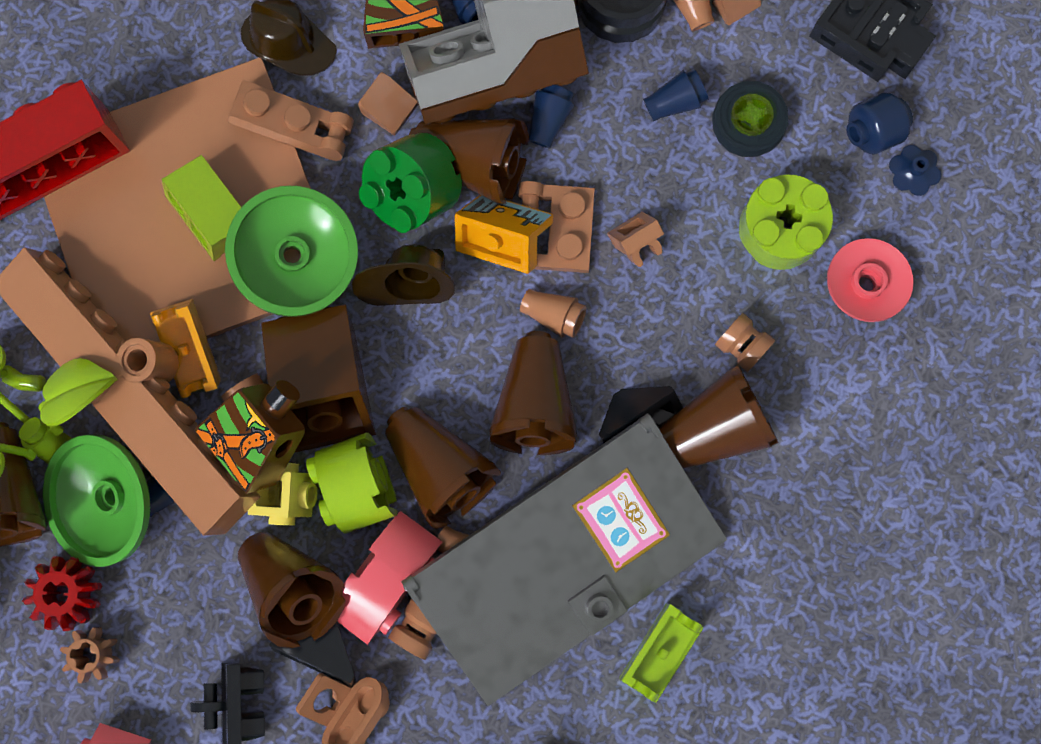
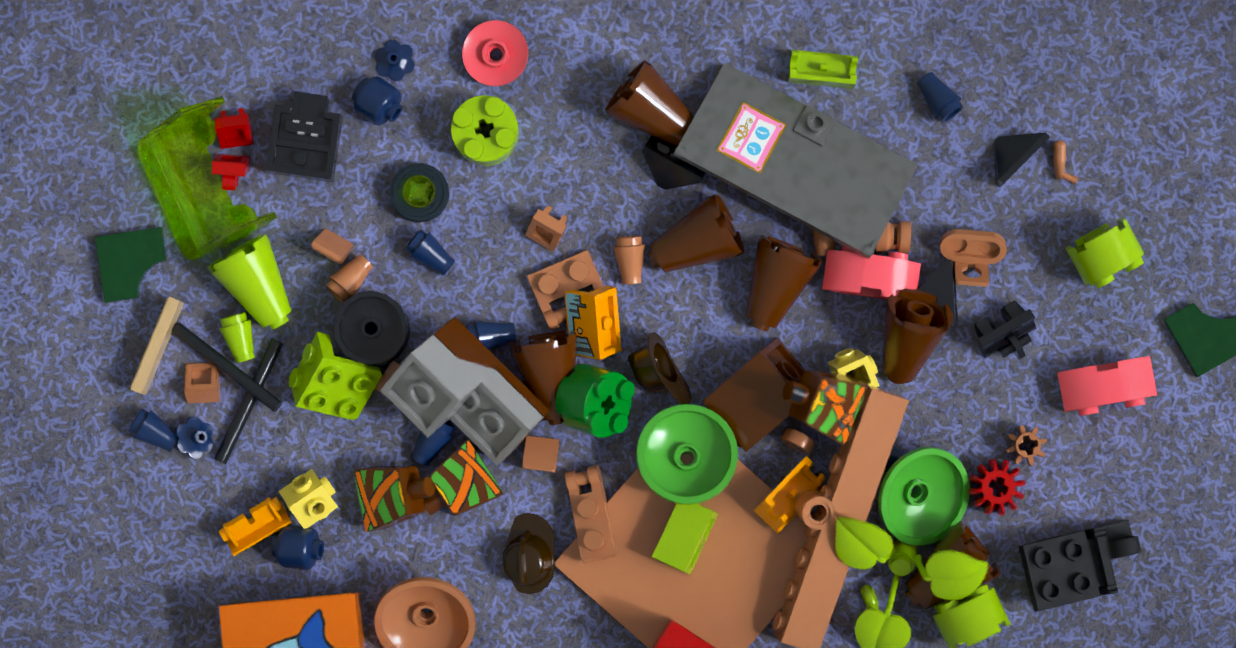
camera: 120 degrees left, 5 degrees up
(352, 484) = (821, 328): lime brick -> none
(737, 335) = (583, 116): nougat wheel -> none

